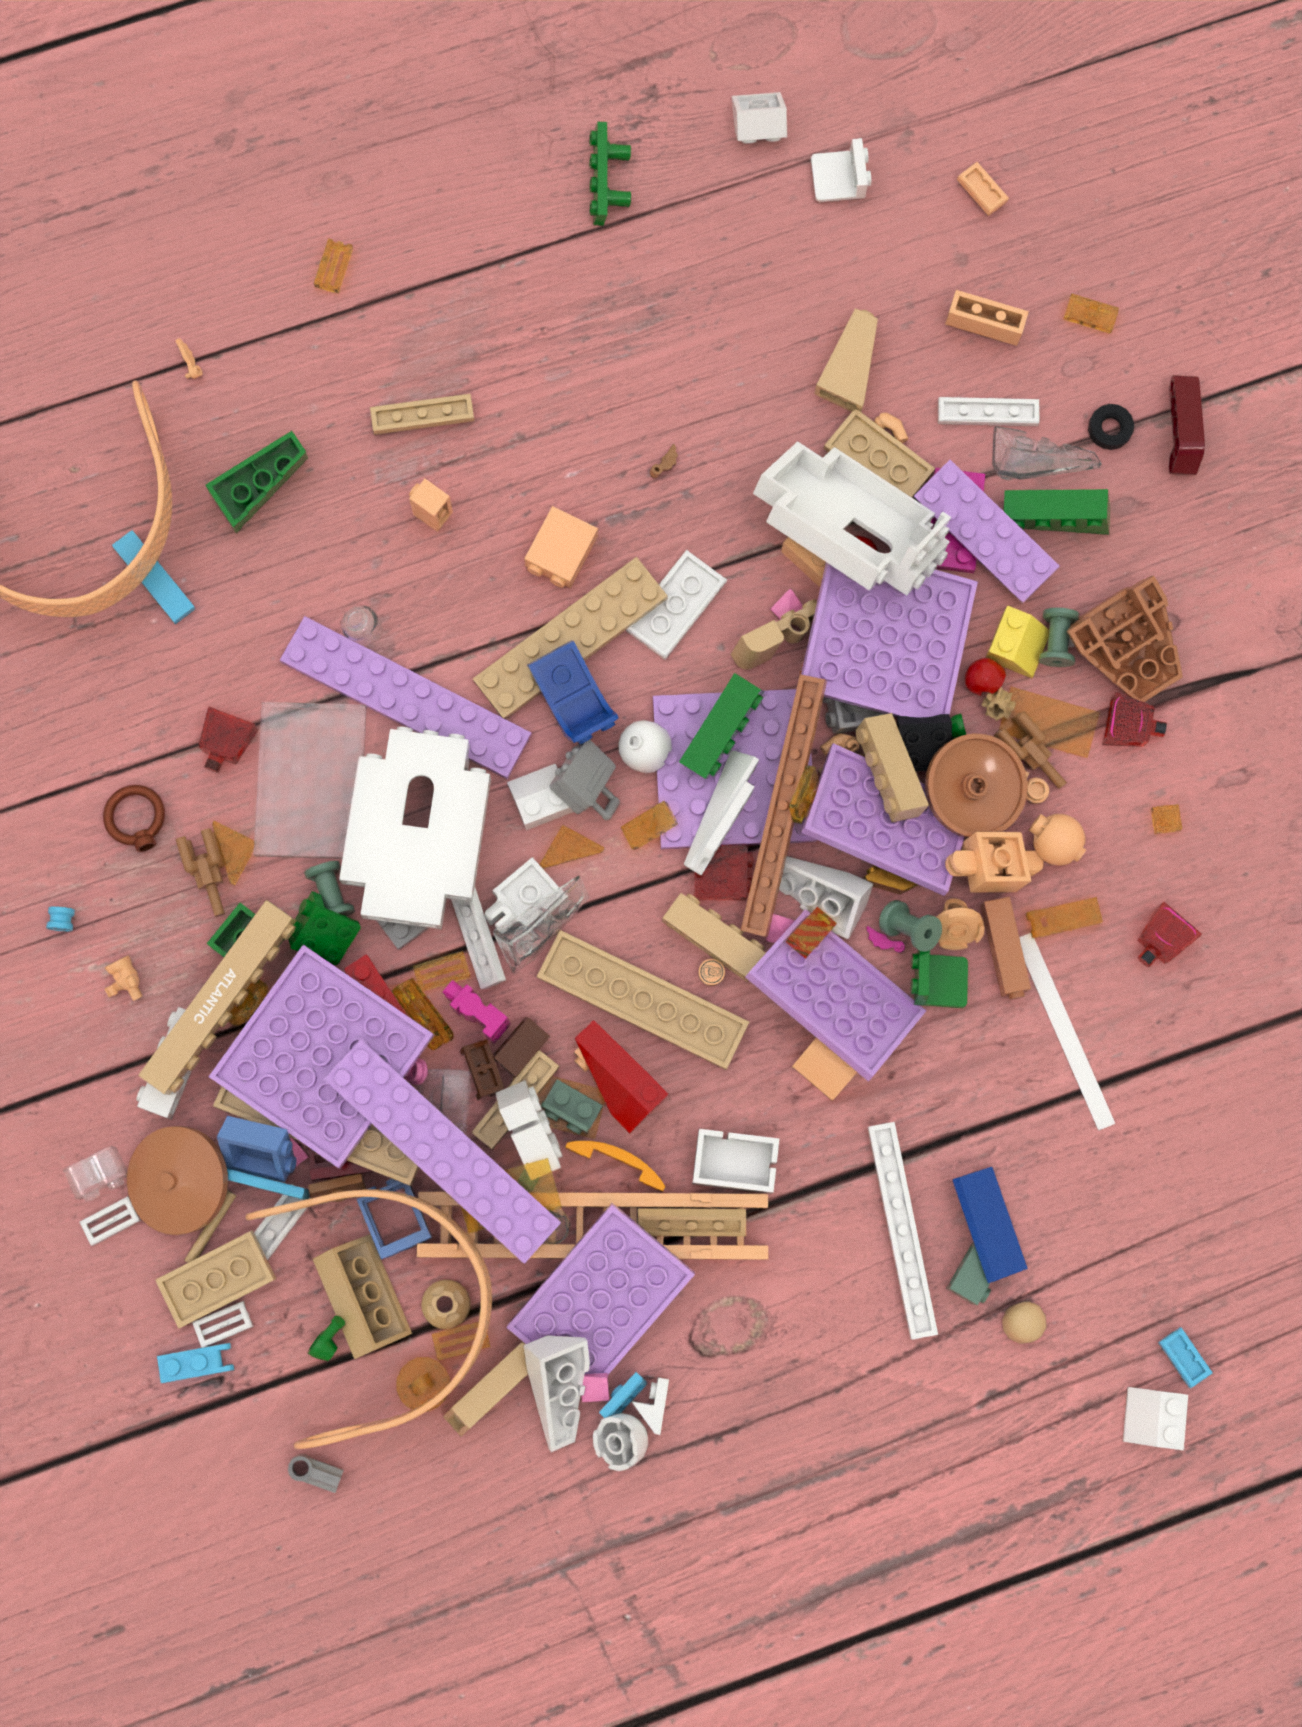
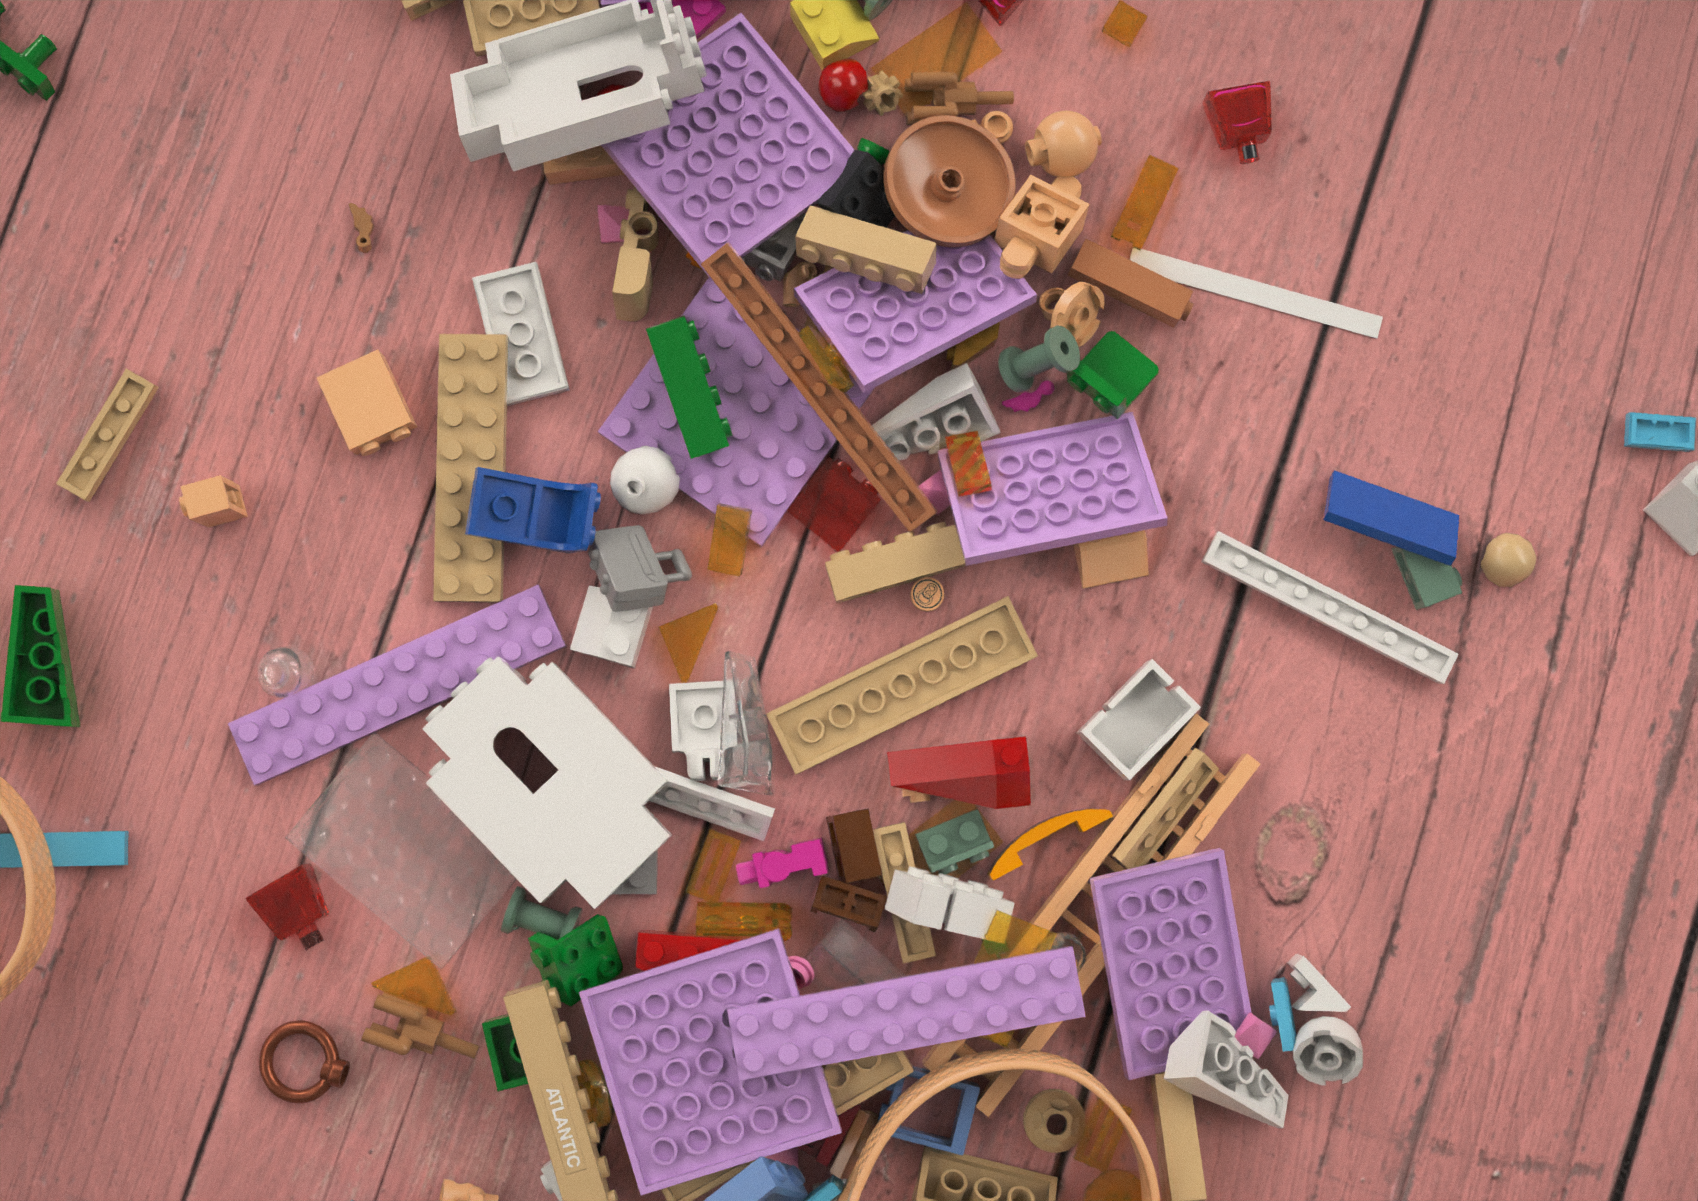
camera: 55 degrees left, 5 degrees up
(723, 809) = (773, 453): white wedge -> none

